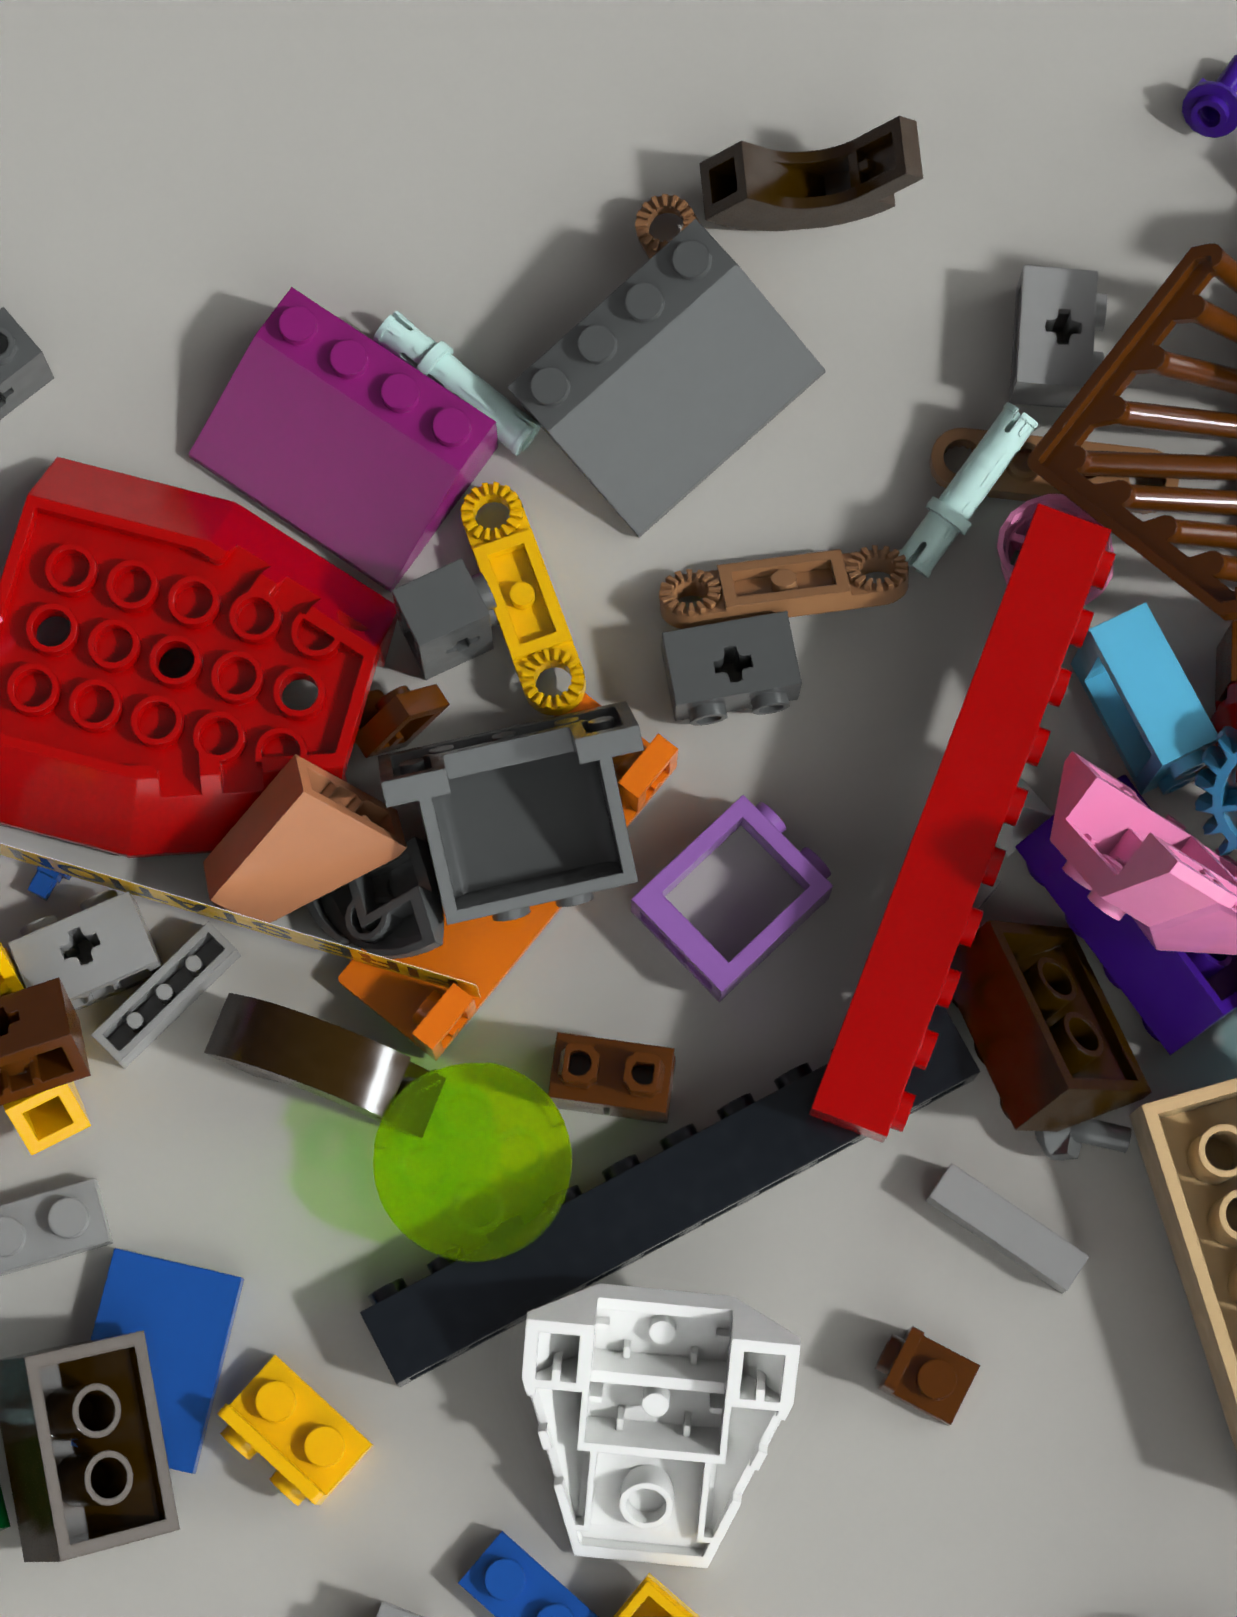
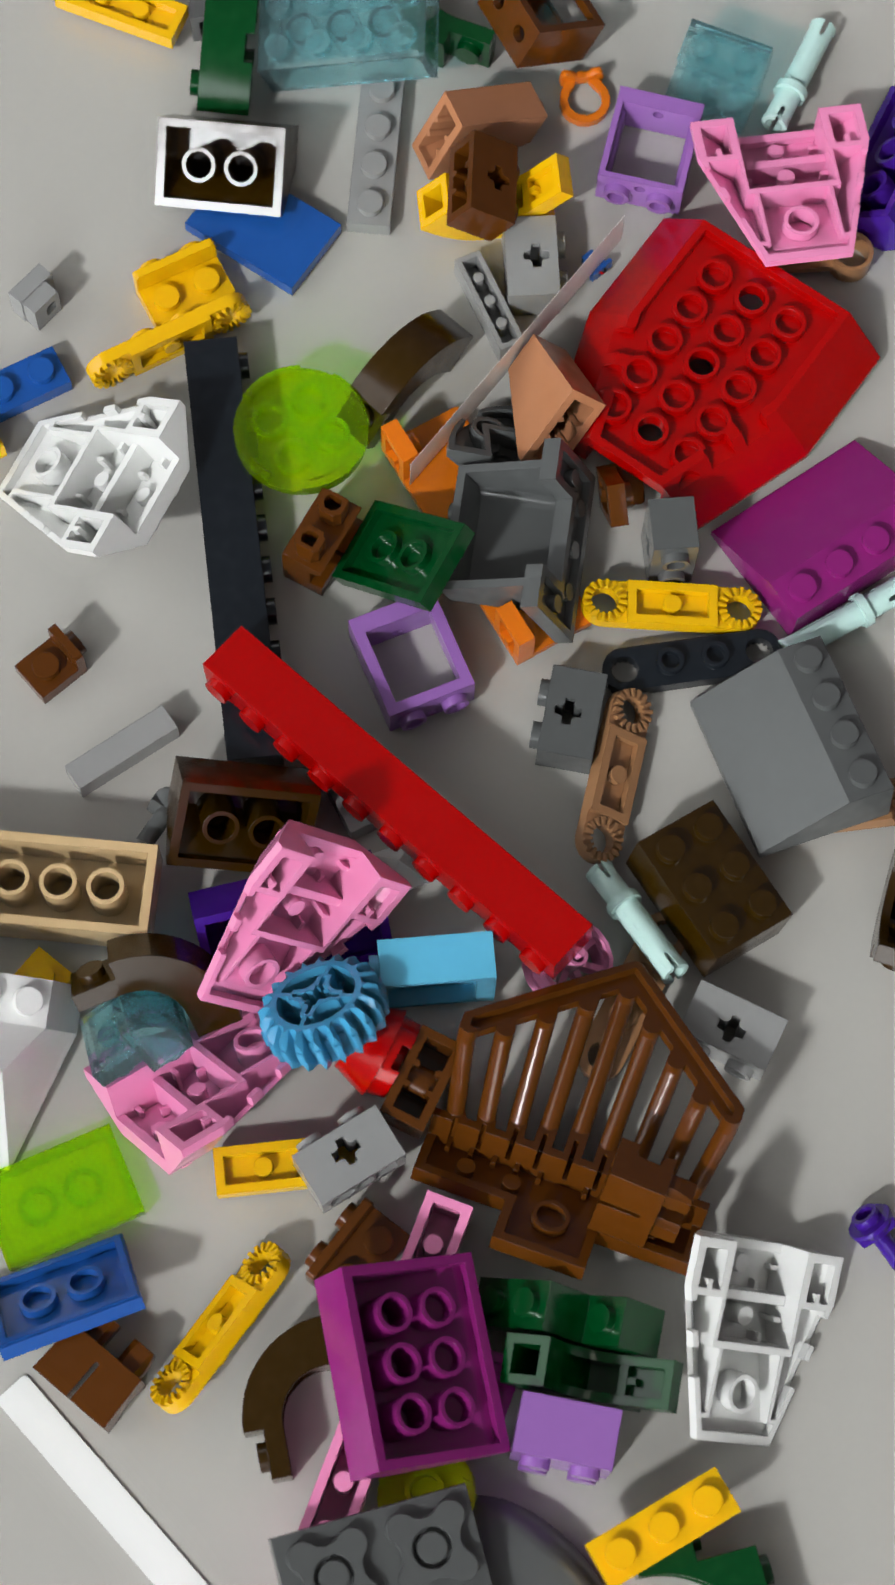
camera: 110 degrees right, 5 degrees down
(408, 1438) = (165, 342): none -> yellow plate
(585, 551) = (687, 661): none -> black plate
(604, 948) = (403, 555): none -> dark green plate
(891, 417) = (708, 888): none -> dark brown brick

